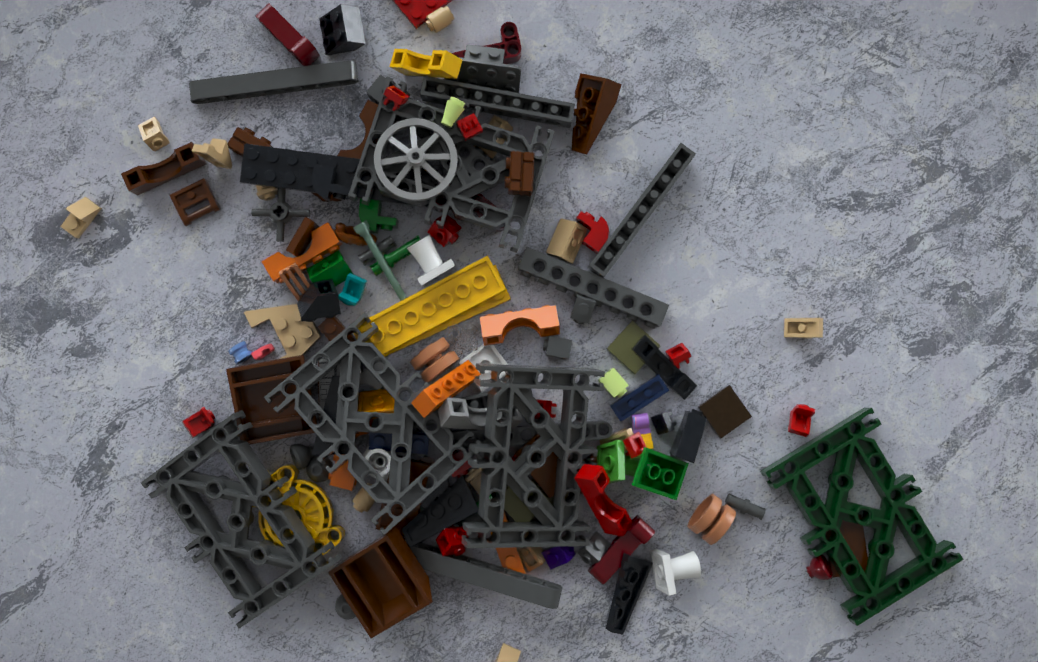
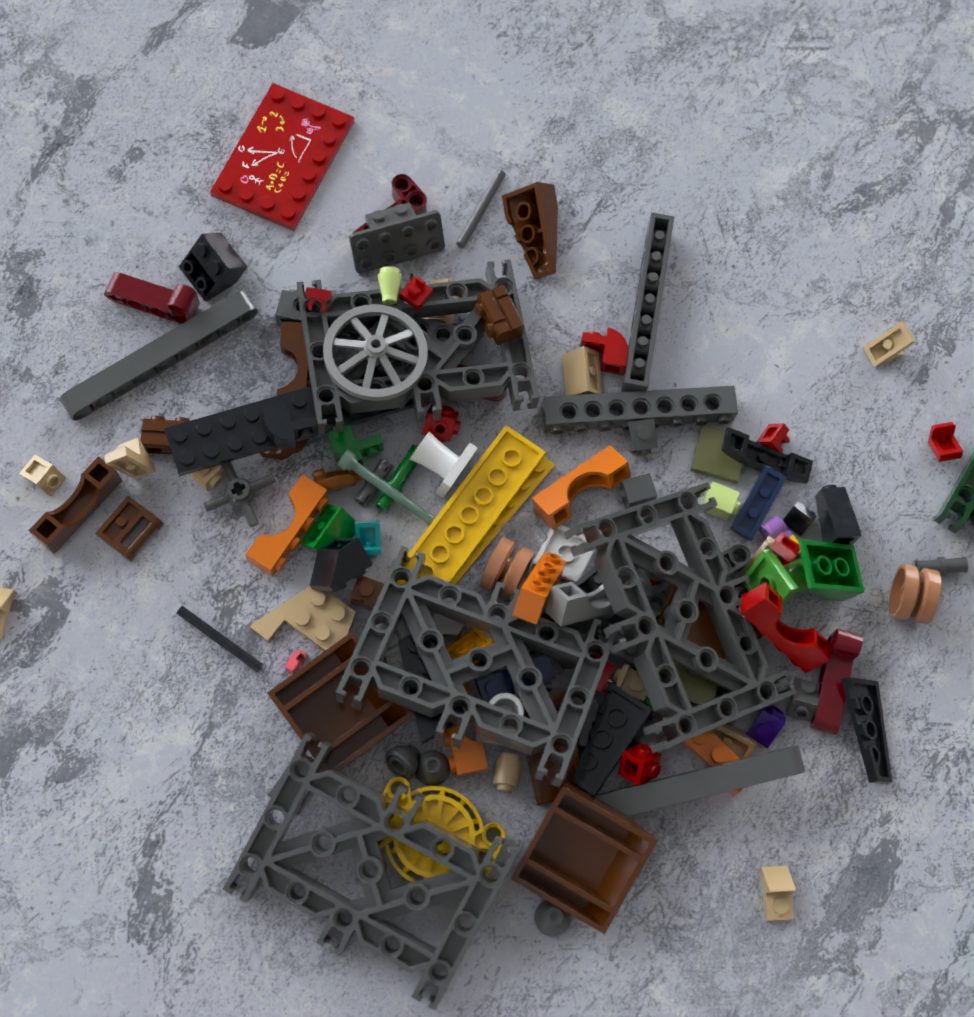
camera: 30 degrees left, 15 degrees down
(199, 422) = (259, 781): red bracket -> none
(220, 309) = (219, 638): none -> black bar
(240, 352) = (269, 674): medium blue wheel -> none
(288, 270) = (284, 547): nougat tile -> none
(302, 237) = (281, 503): reddish brown tile -> none
(439, 19) = (317, 207): tan brick -> none
(439, 65) = (312, 263): yellow arch -> none
(499, 101) = (434, 259): dark grey brick -> none
(562, 74) = (482, 206): none -> dark grey bar
(677, 568) = (901, 676): white plant -> none
(724, 411) = (859, 474): dark brown tile -> none

